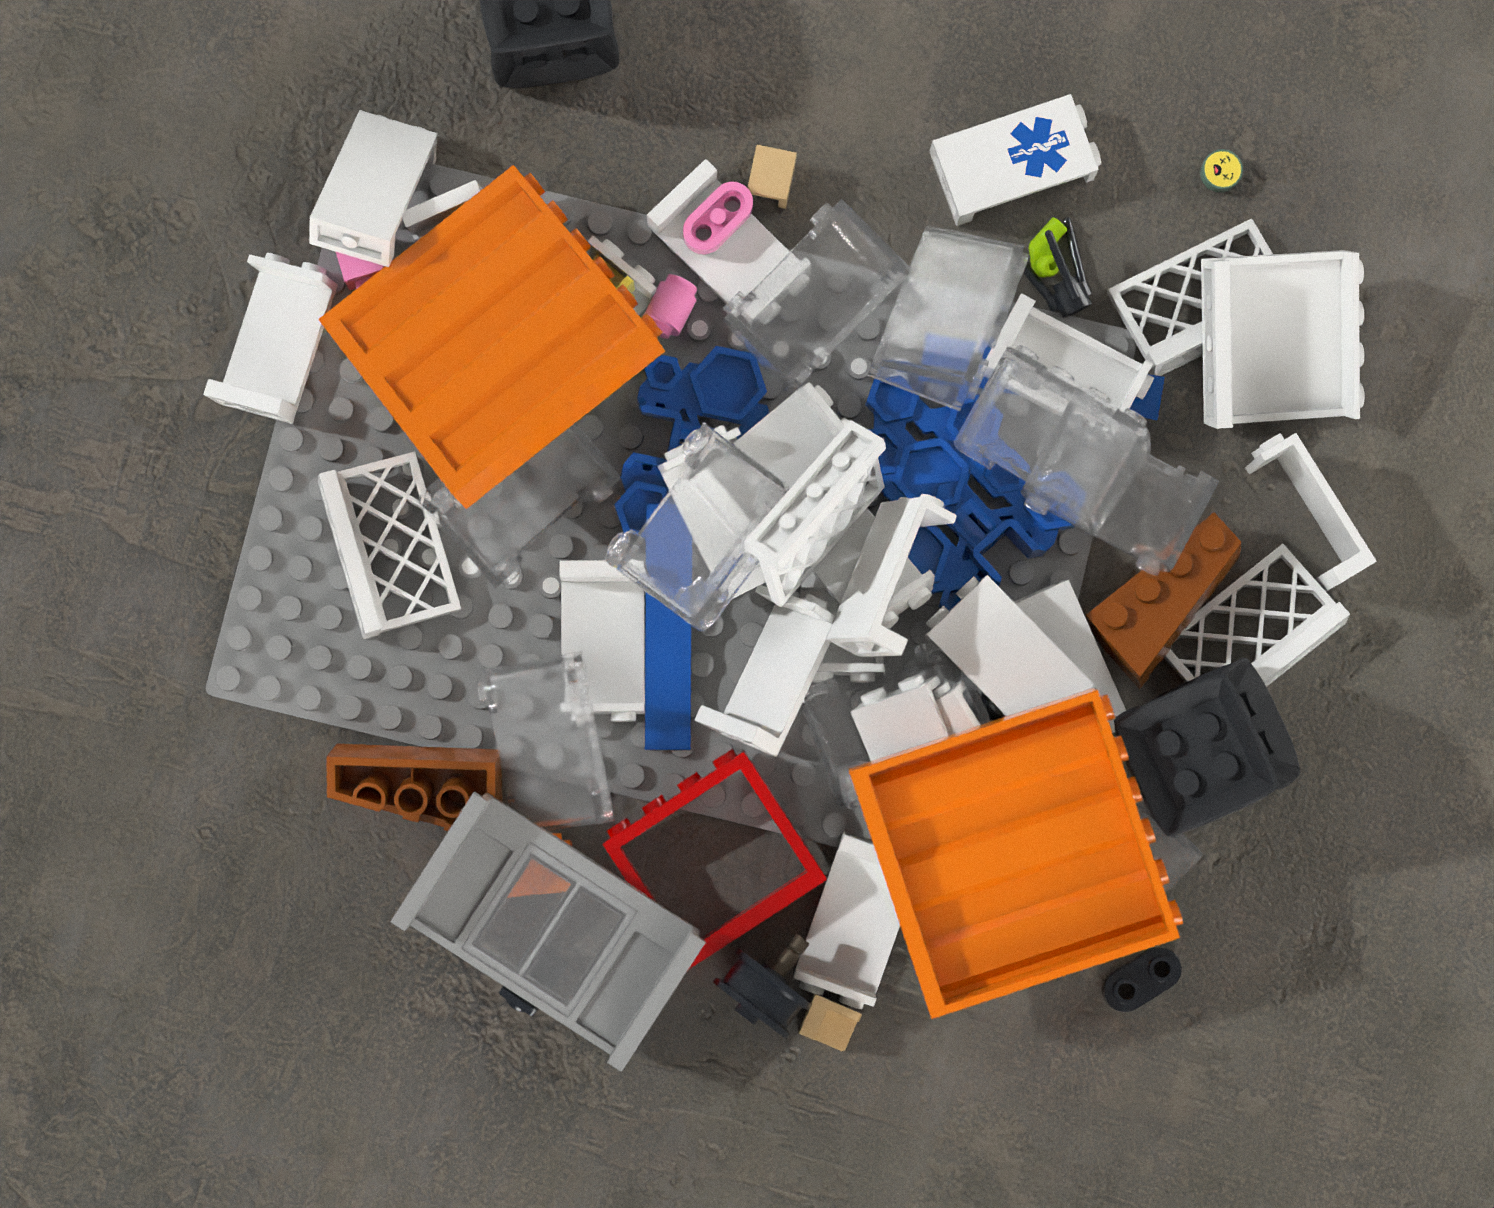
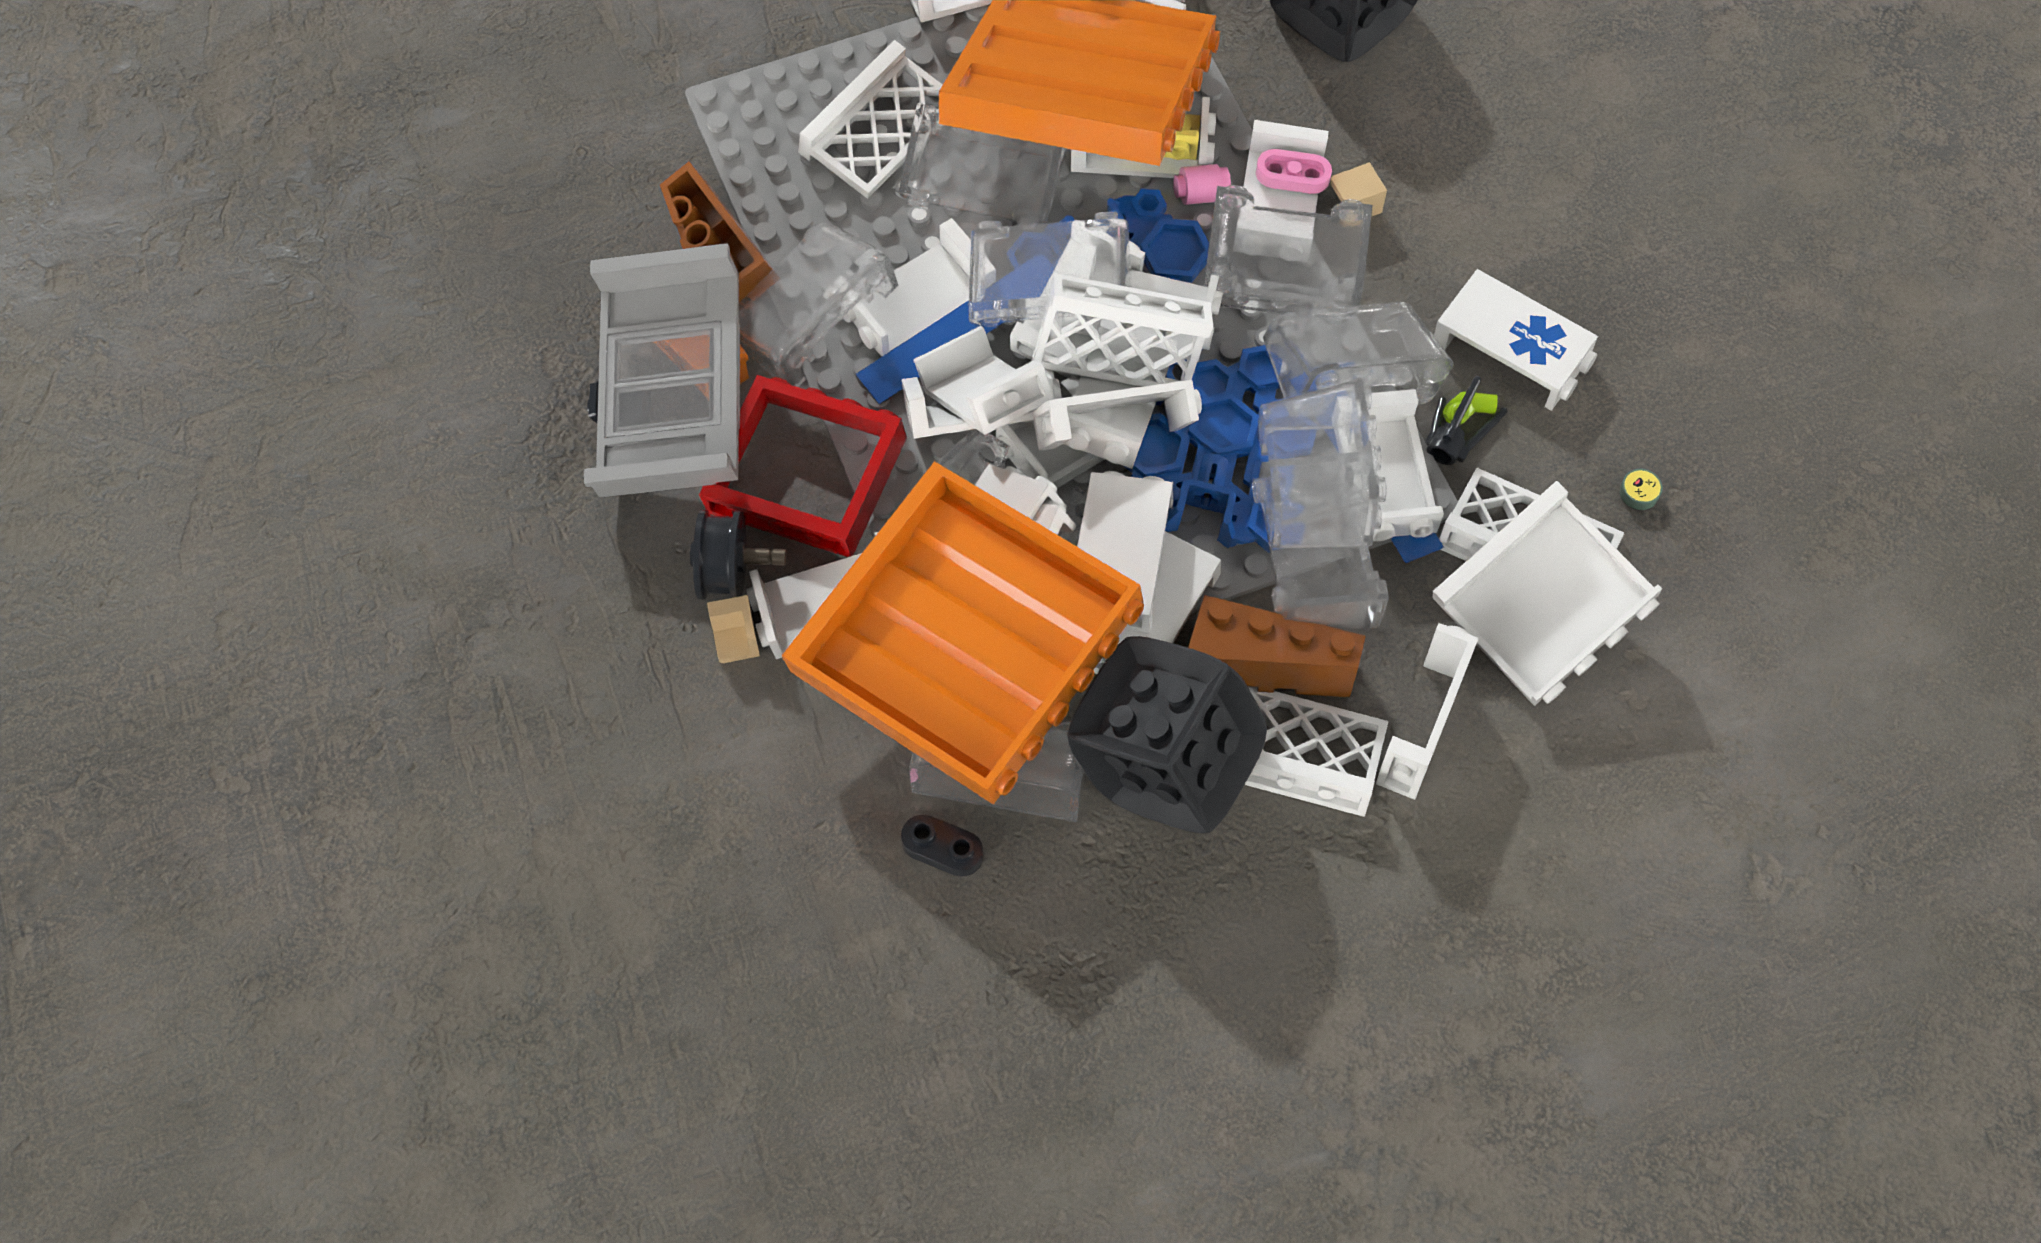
camera: 60 degrees right, 20 degrees down
(763, 659) = (979, 385): none -> white panel

